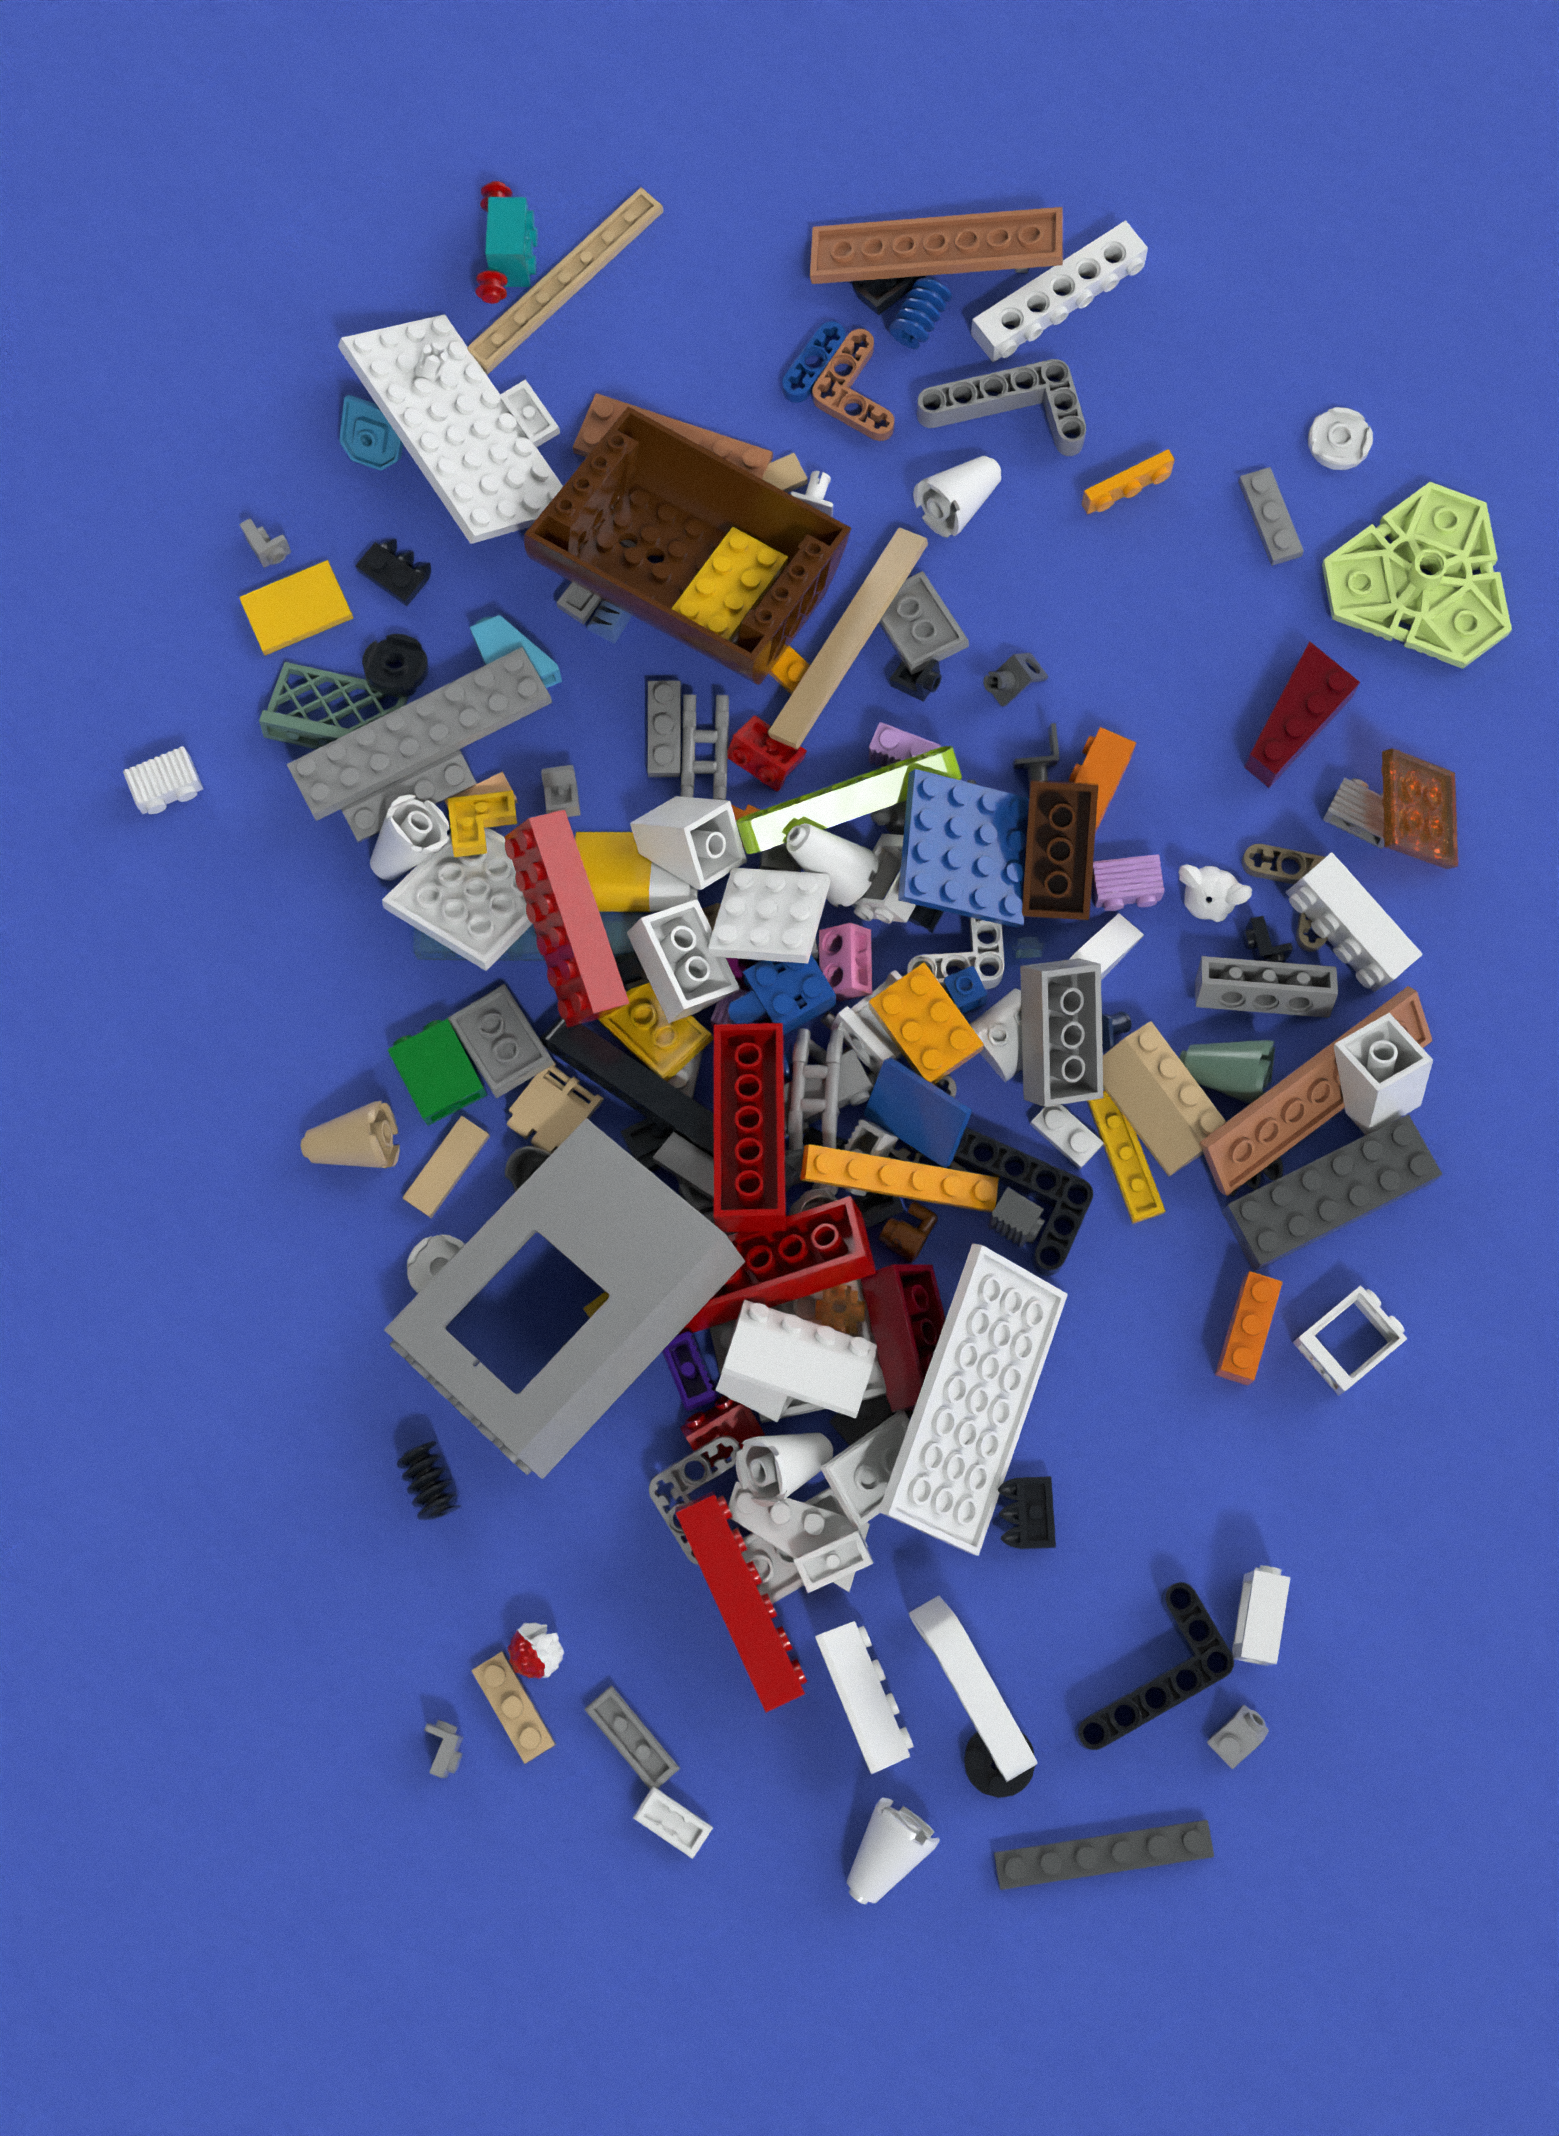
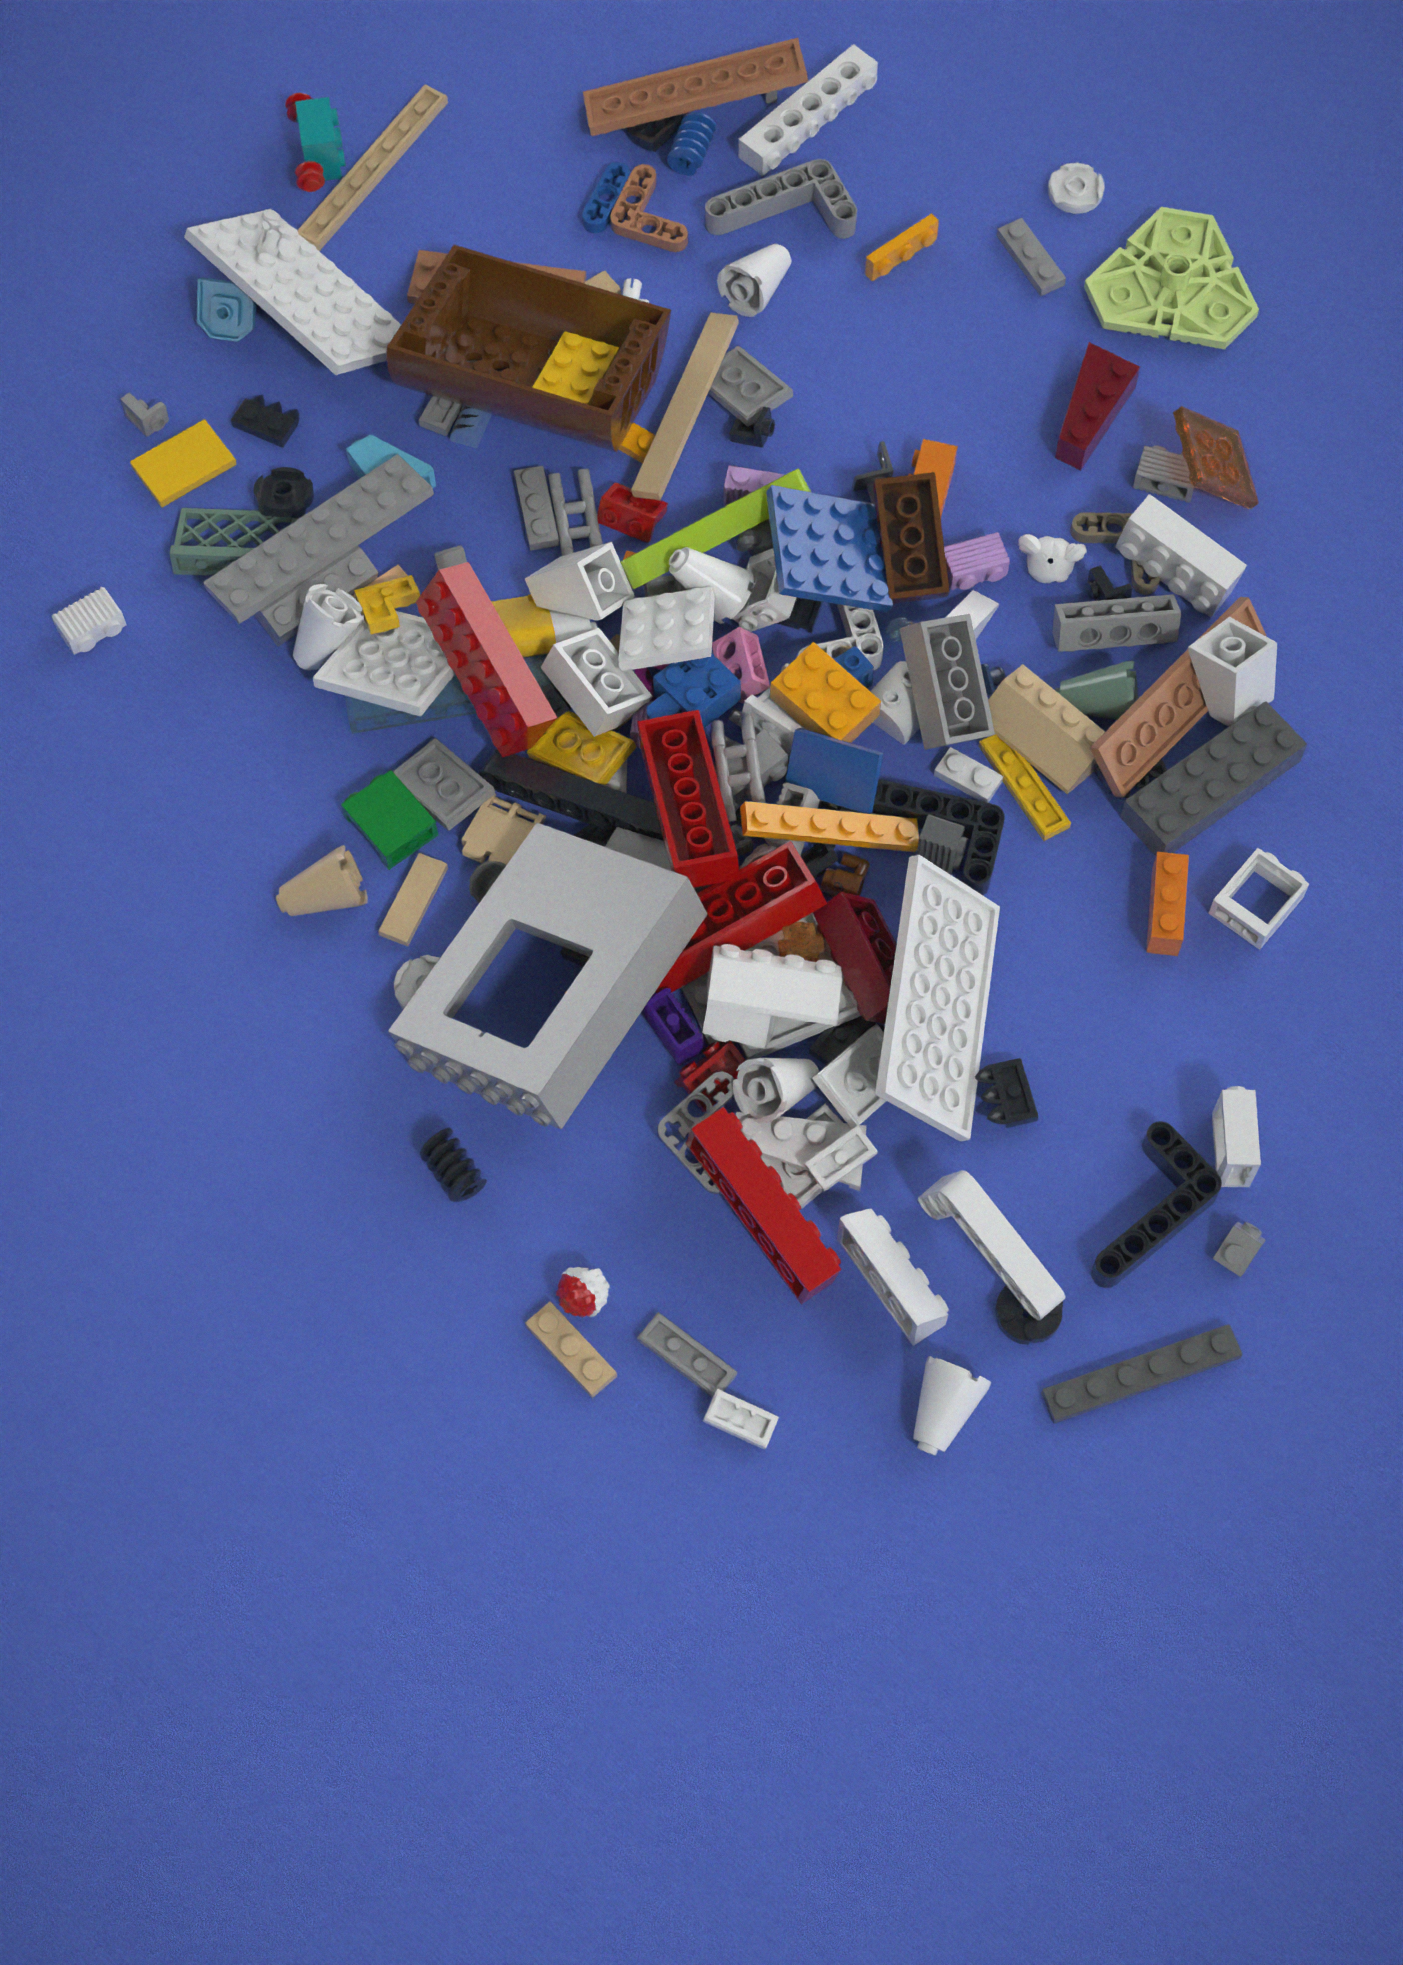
camera: 15 degrees left, 10 degrees down
(447, 1757) = (518, 1401): light grey bracket -> none
(530, 413) = (364, 274): white plate -> none
(1013, 677) = (836, 416): dark grey bracket -> none

